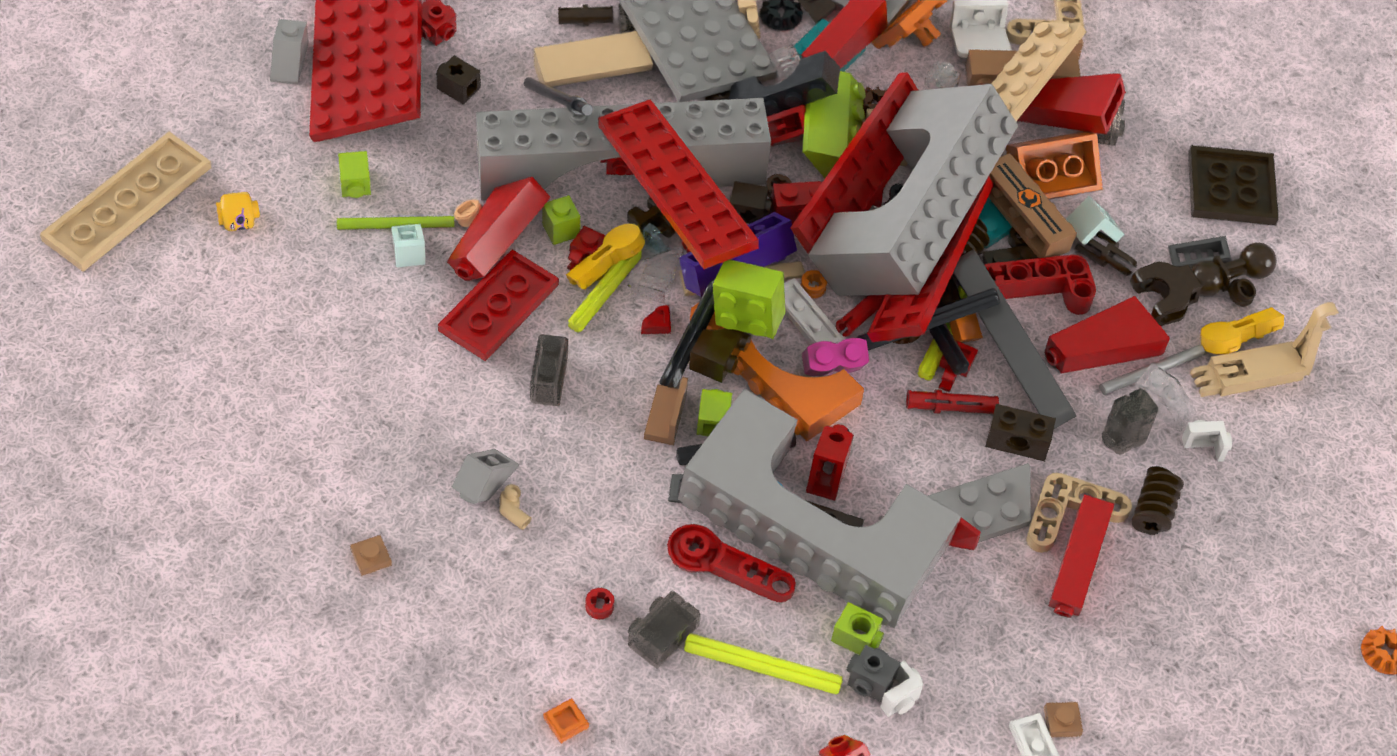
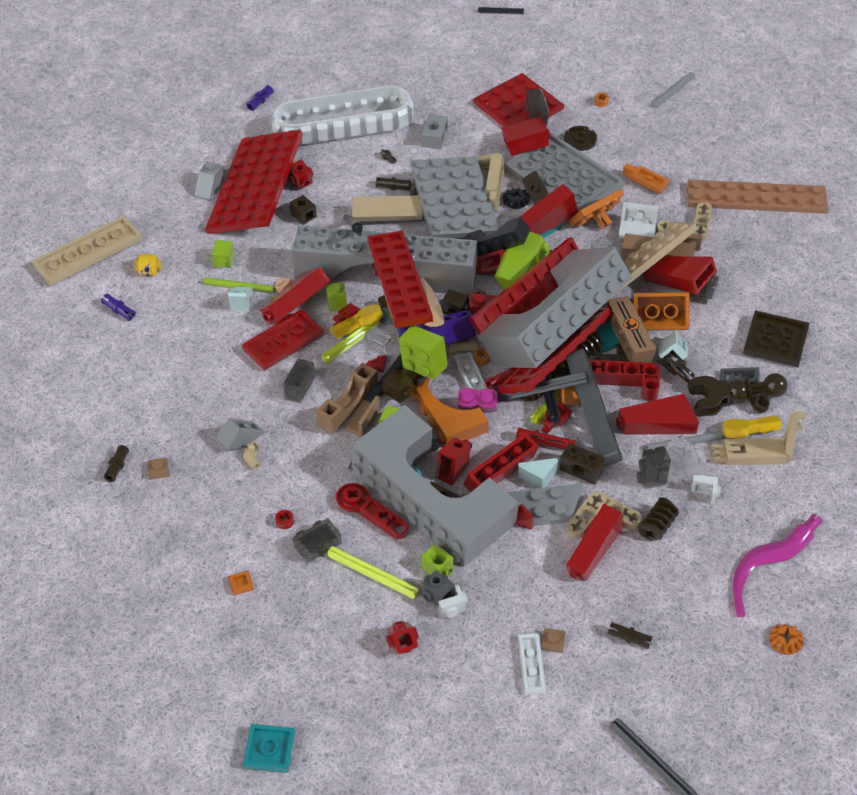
camera: 20 degrees right, 5 degrees down
(212, 291) = (118, 307): none -> dark purple pin
(301, 559) = (116, 463): none -> dark brown pin
(645, 370) = (335, 413): none -> medium nougat arch
(904, 457) = (503, 462): none -> red brick
(958, 457) = (538, 472): none -> light aqua slope
(1171, 689) = (629, 635): none -> dark brown pin
(1327, 523) = (772, 553): none -> dark pink animal

